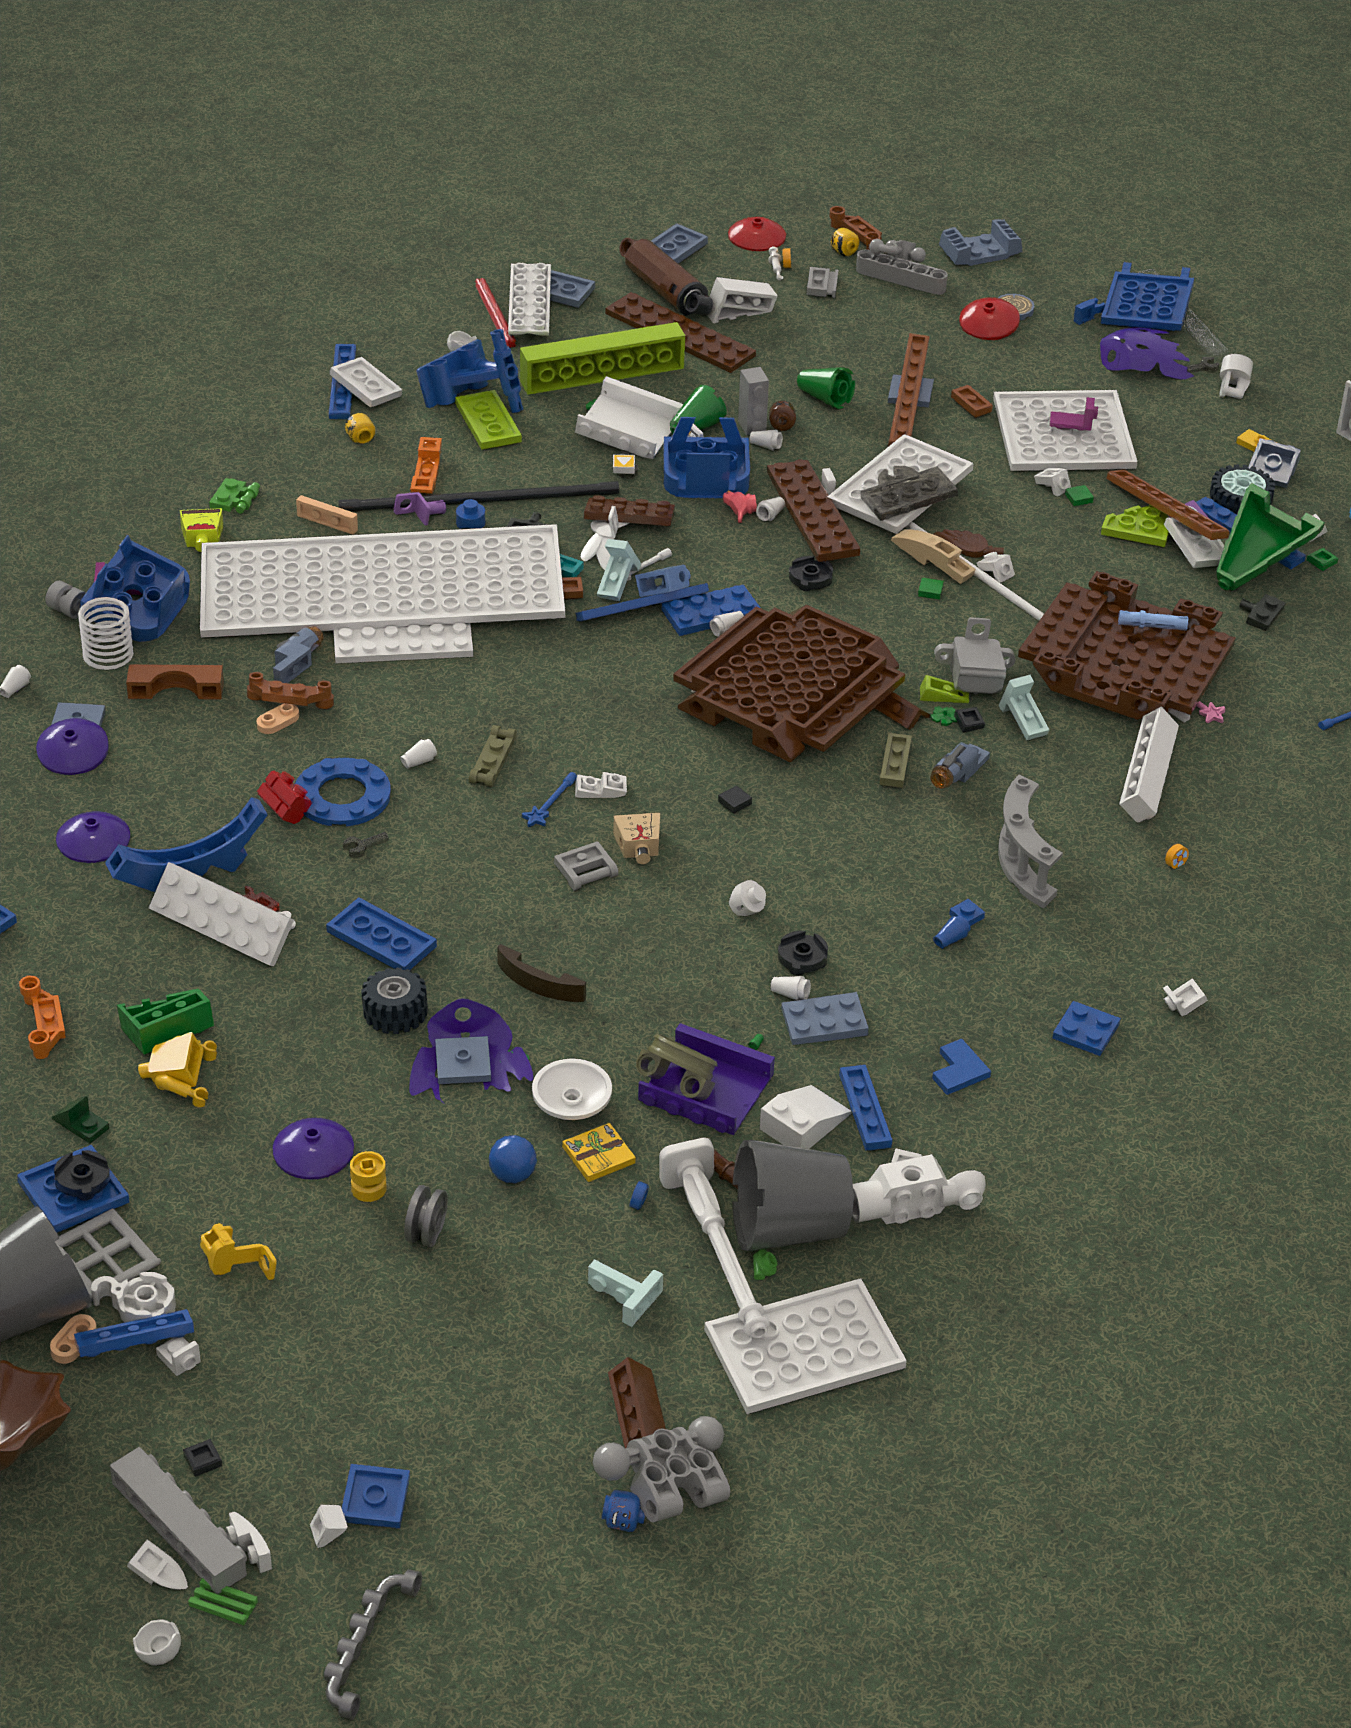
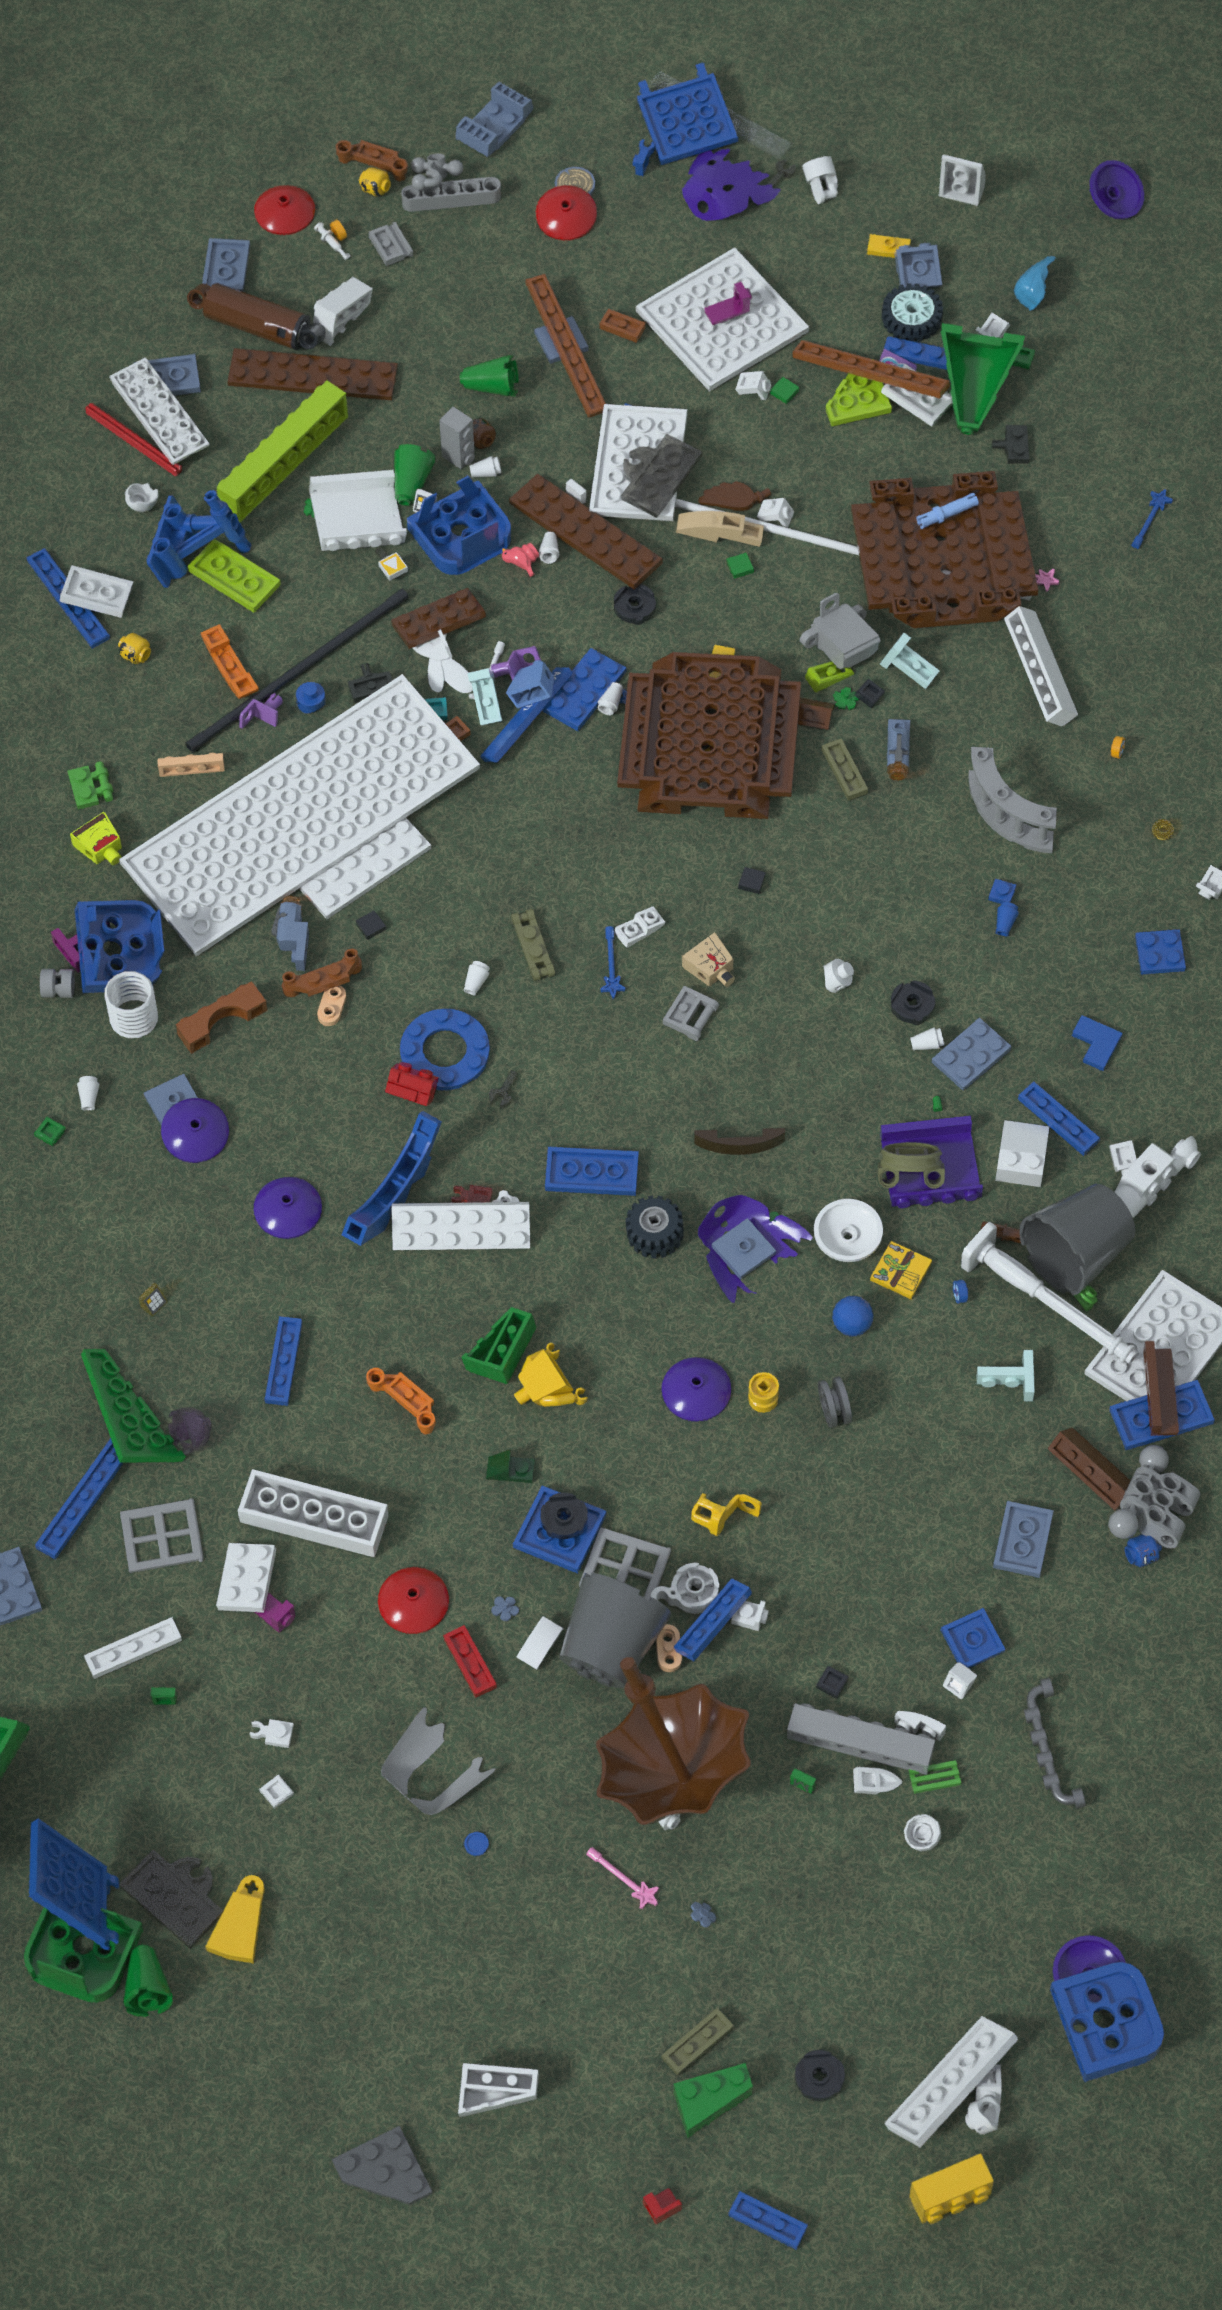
camera: 30 degrees left, 20 degrees up
(86, 1525) = (803, 1781): none -> green tile
(367, 681) = (370, 925): none -> black tile
(509, 1436) = (1023, 1539): none -> sand blue plate
(662, 561) = (515, 662): none -> medium lavender bracket
(746, 1397) = (1133, 1416): none -> blue plate
(758, 1369) = (1160, 1390): none -> reddish brown panel
(1170, 936) = (1162, 824): none -> clear yellow plate

